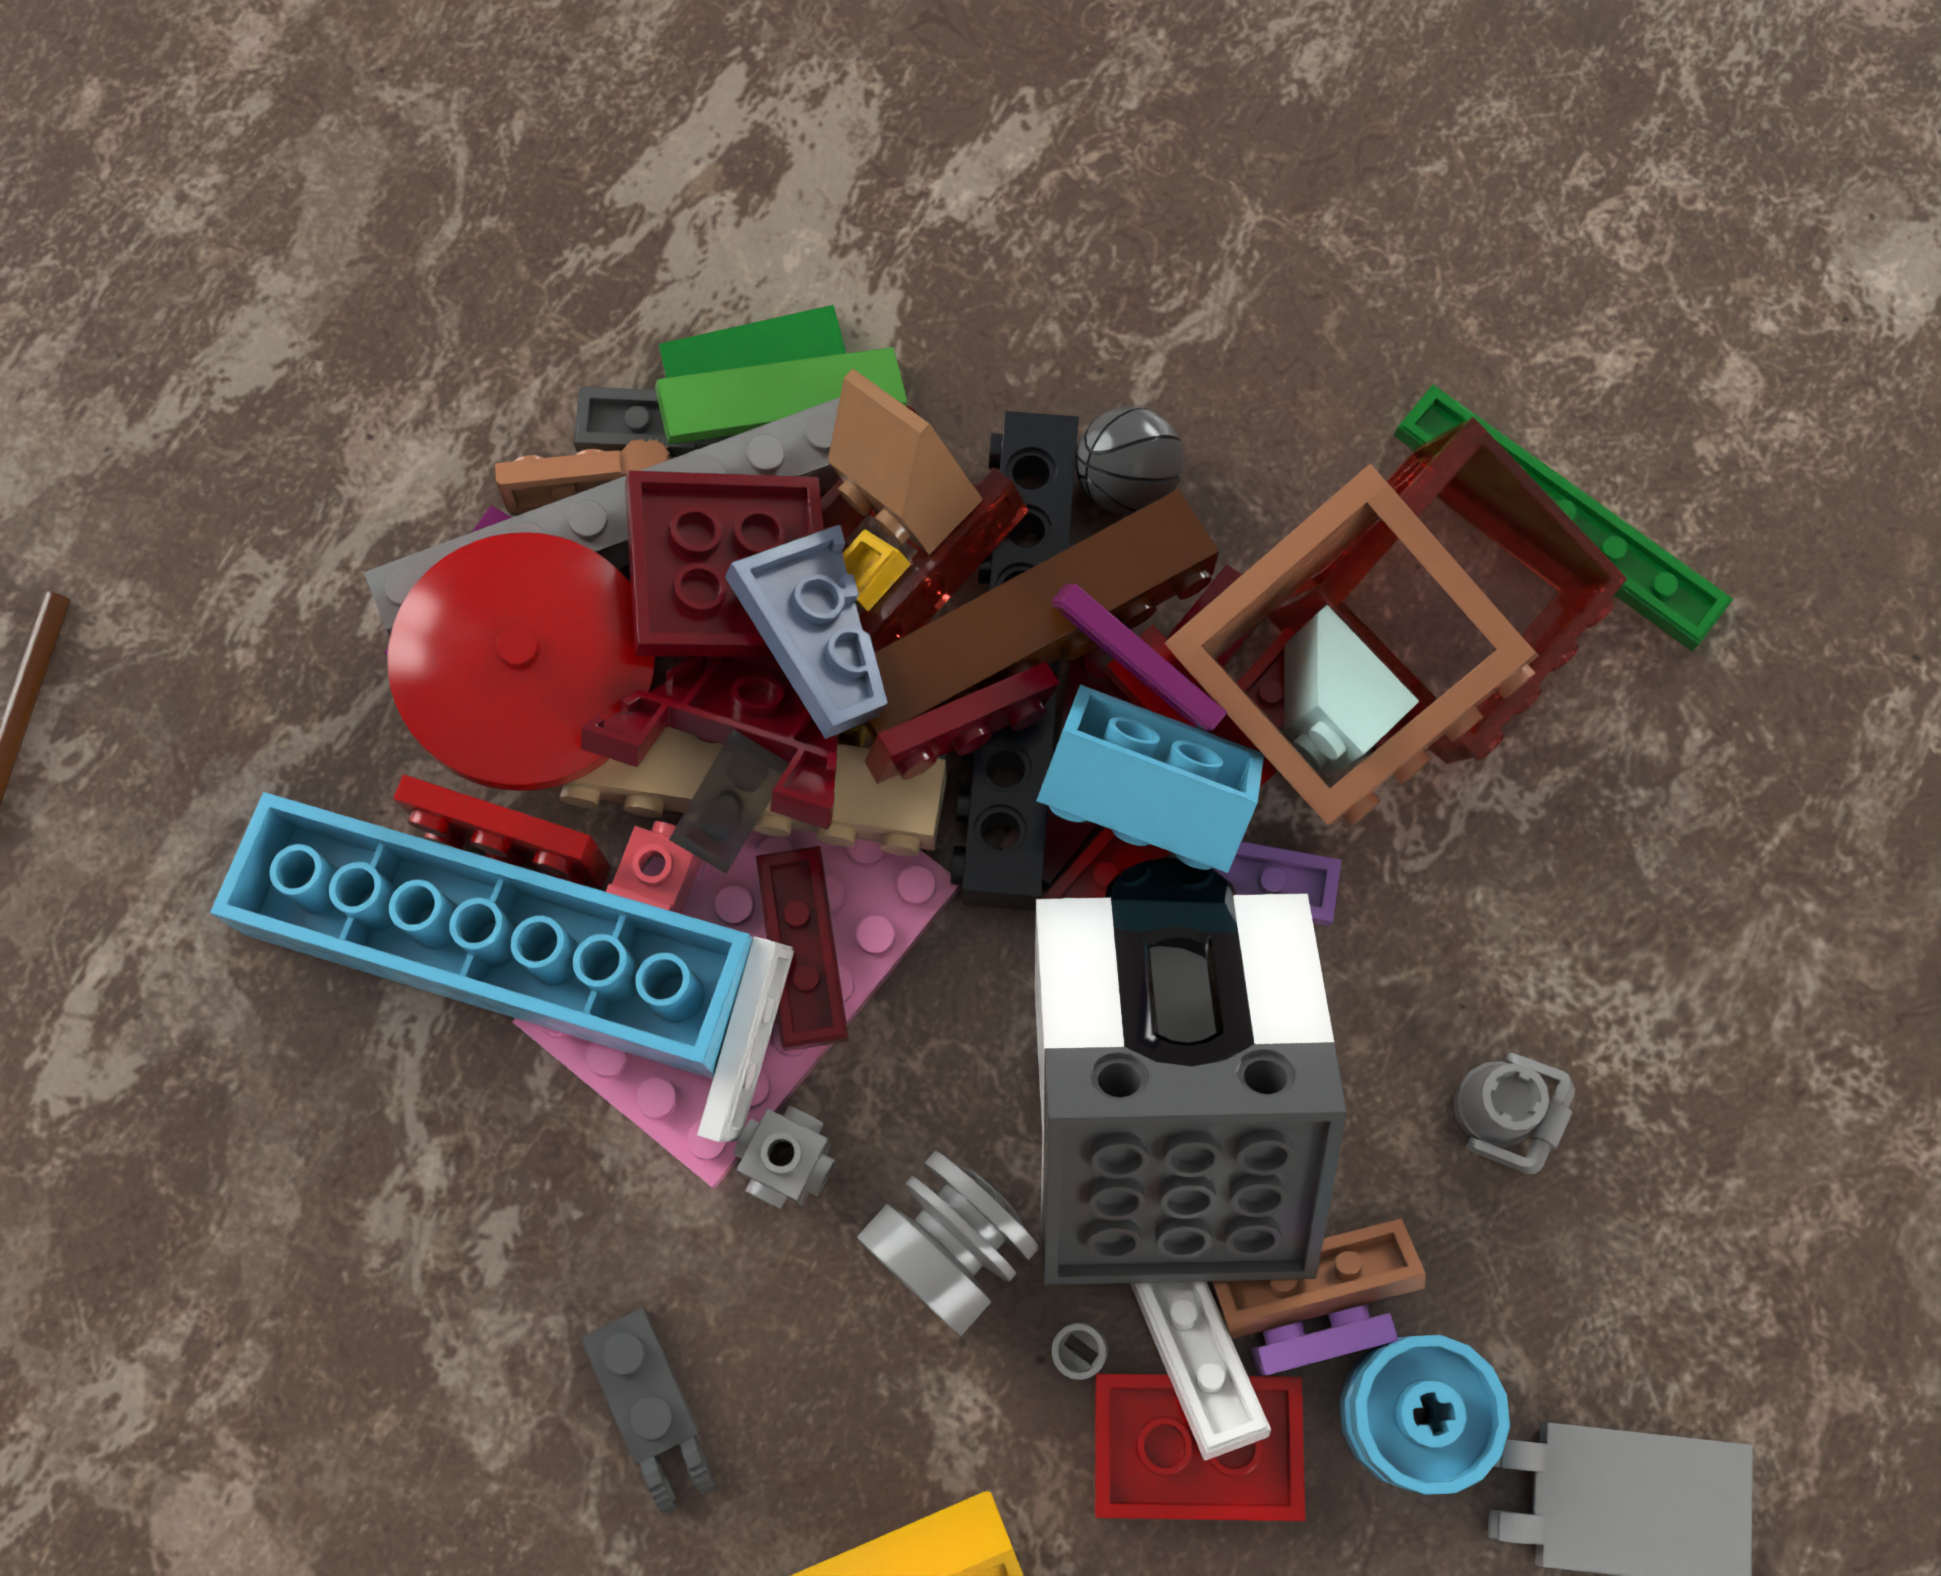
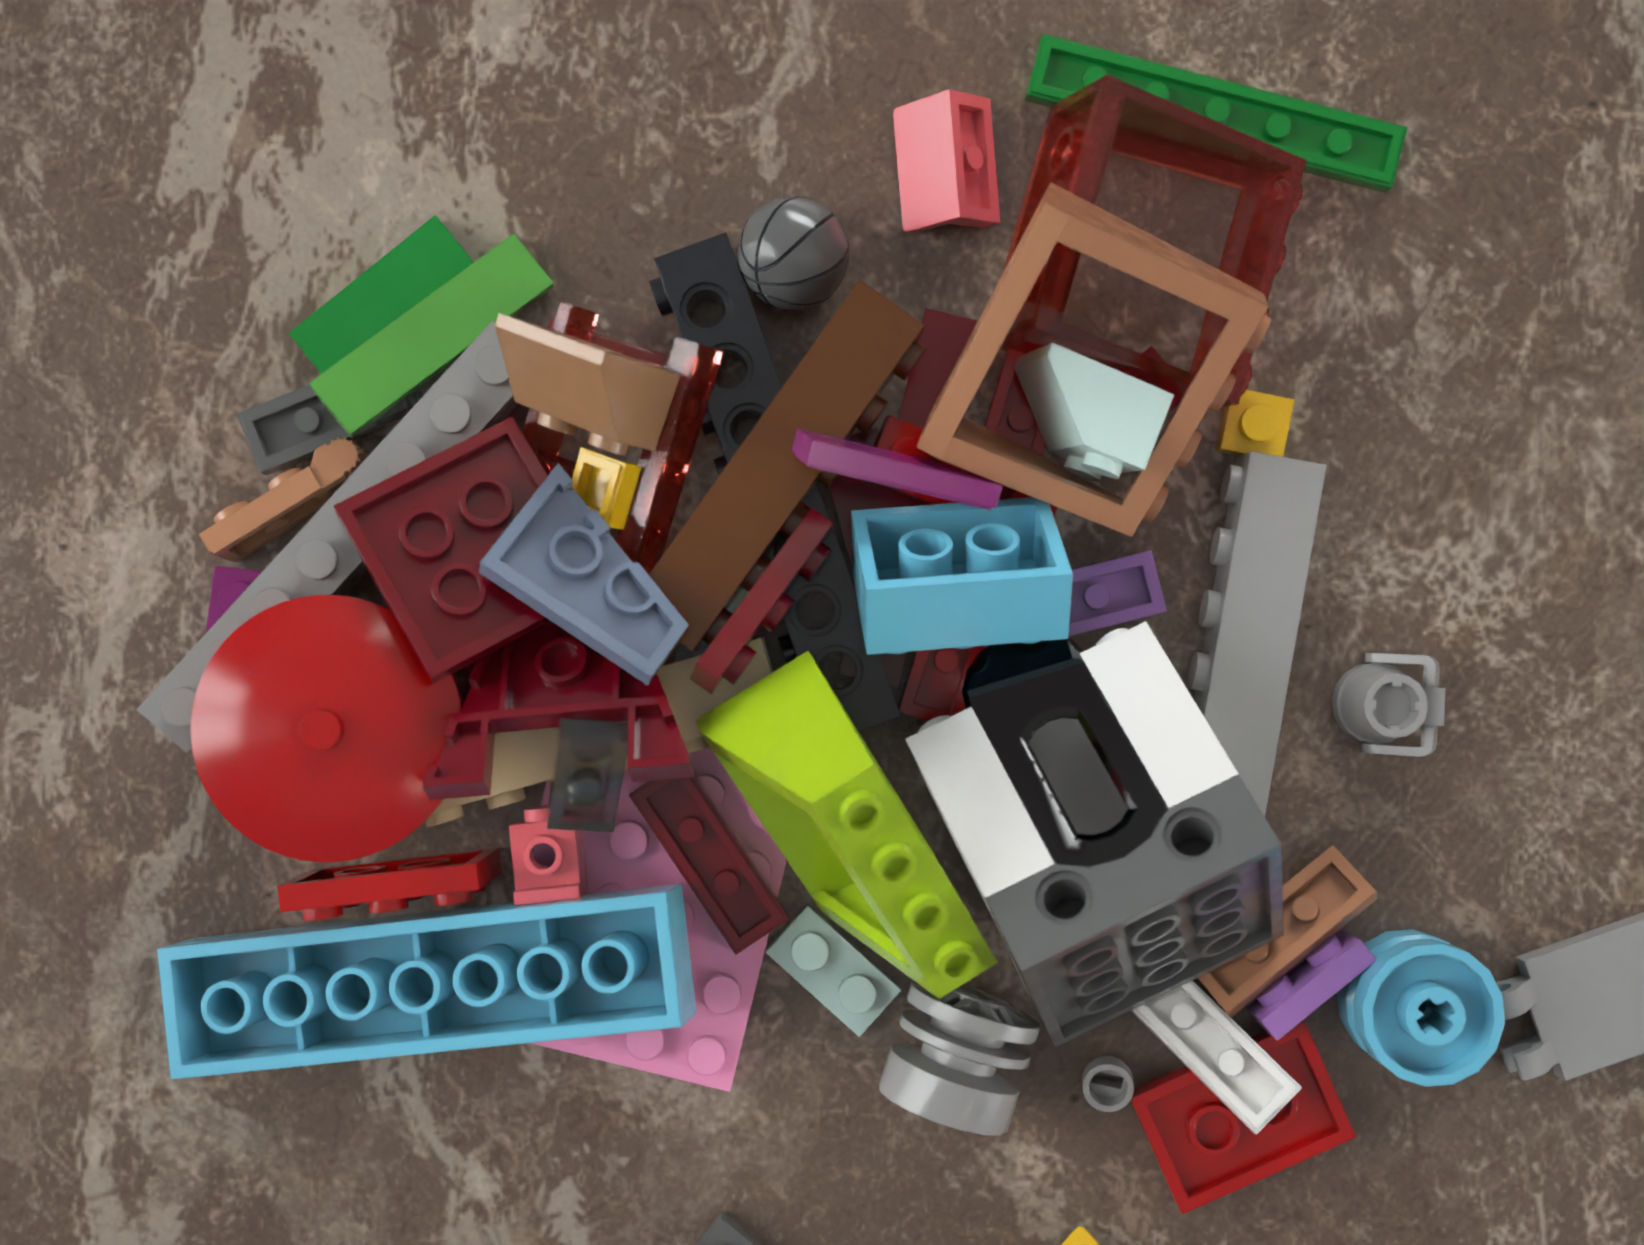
camera: 20 degrees left, 15 degrees up
(746, 1040) = (703, 969): white tile -> none
(794, 1181) = (787, 1020): light grey brick -> none
(865, 1119) = (833, 969): none -> light aqua plate
(942, 952) = (844, 825): none -> lime windscreen
(1301, 449) = (946, 162): none -> coral panel
(1420, 953) = (1255, 608): none -> light grey brick
(1486, 798) = (1255, 425): none -> yellow plate

